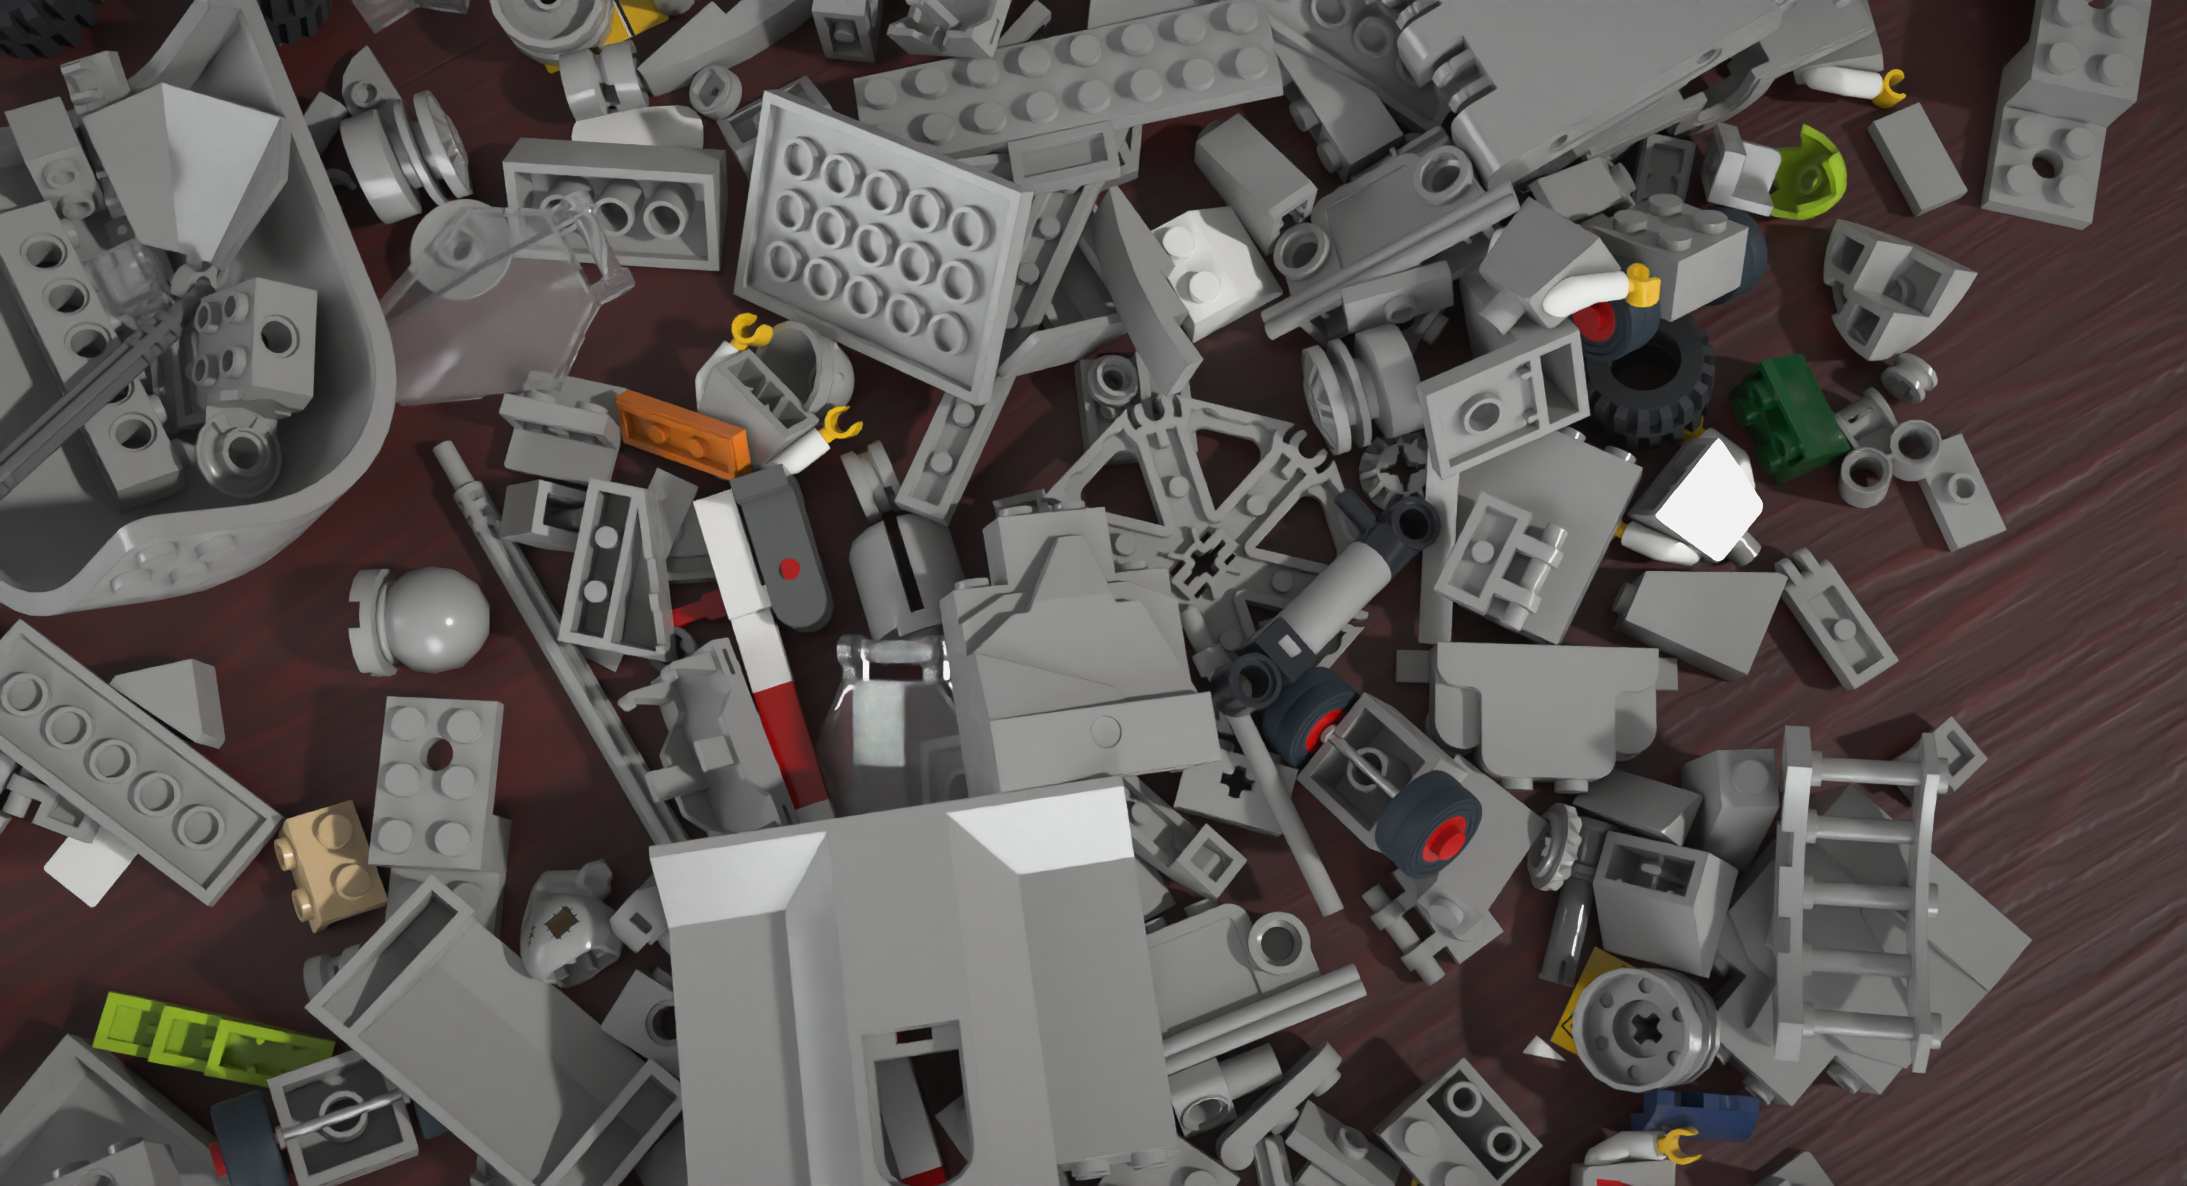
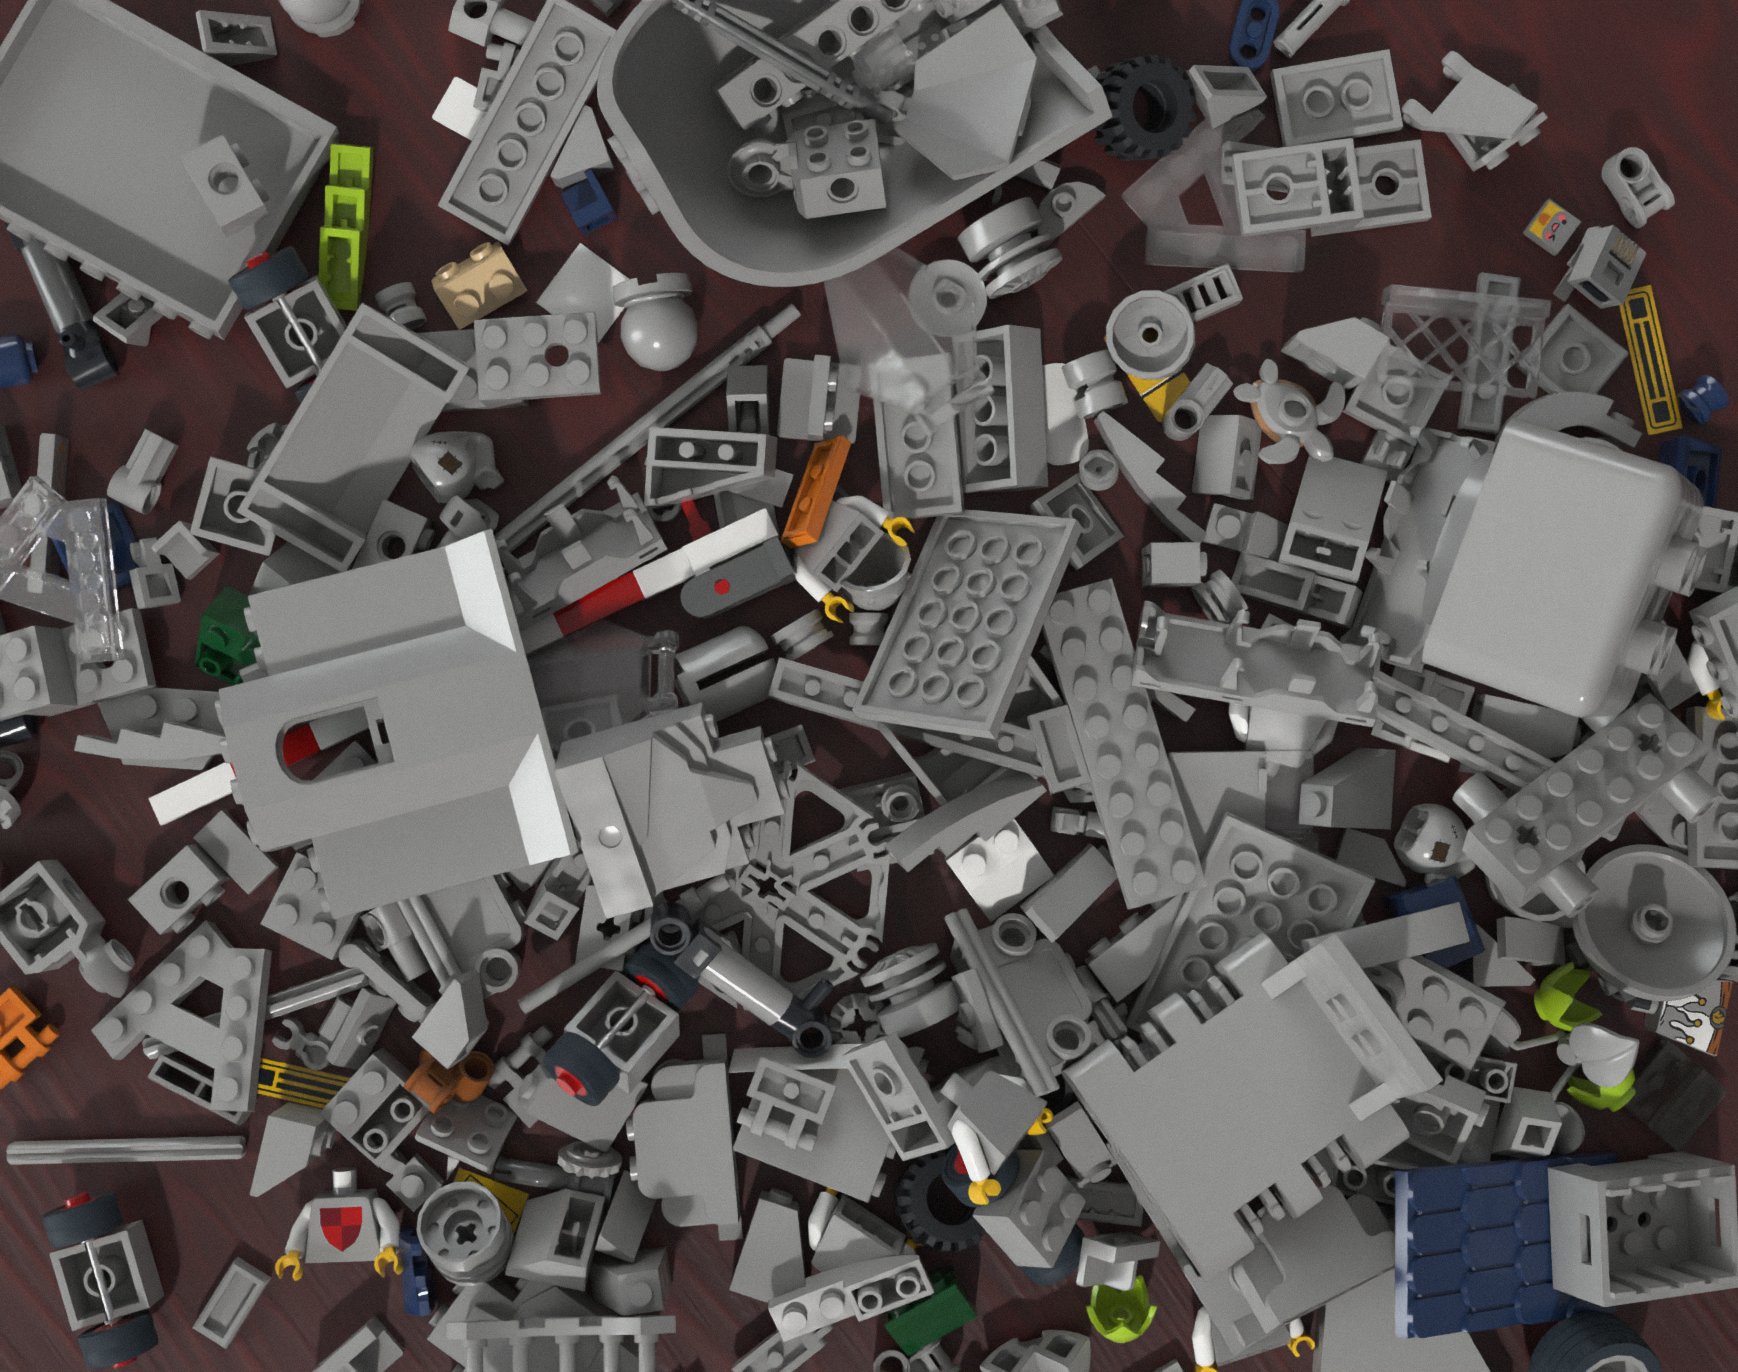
camera: 75 degrees right, 10 degrees up
(250, 700) = (588, 205): none -> dark blue panel
(353, 721) = (584, 286): none -> white sticker
(673, 312) = (916, 471): none -> light grey plate
(878, 398) = (867, 628): none -> light grey wheel
(1167, 157) = (1072, 822): none -> light grey bar
(1347, 1004) = (454, 1022): none -> light grey slope
(1414, 1029) = (439, 1084): none -> dark orange piece
(1496, 1016) = (469, 1131): none -> light grey bracket
(1563, 1107) = (412, 1179): none -> light grey plate
(1757, 502) = (850, 1290): none -> light grey slope

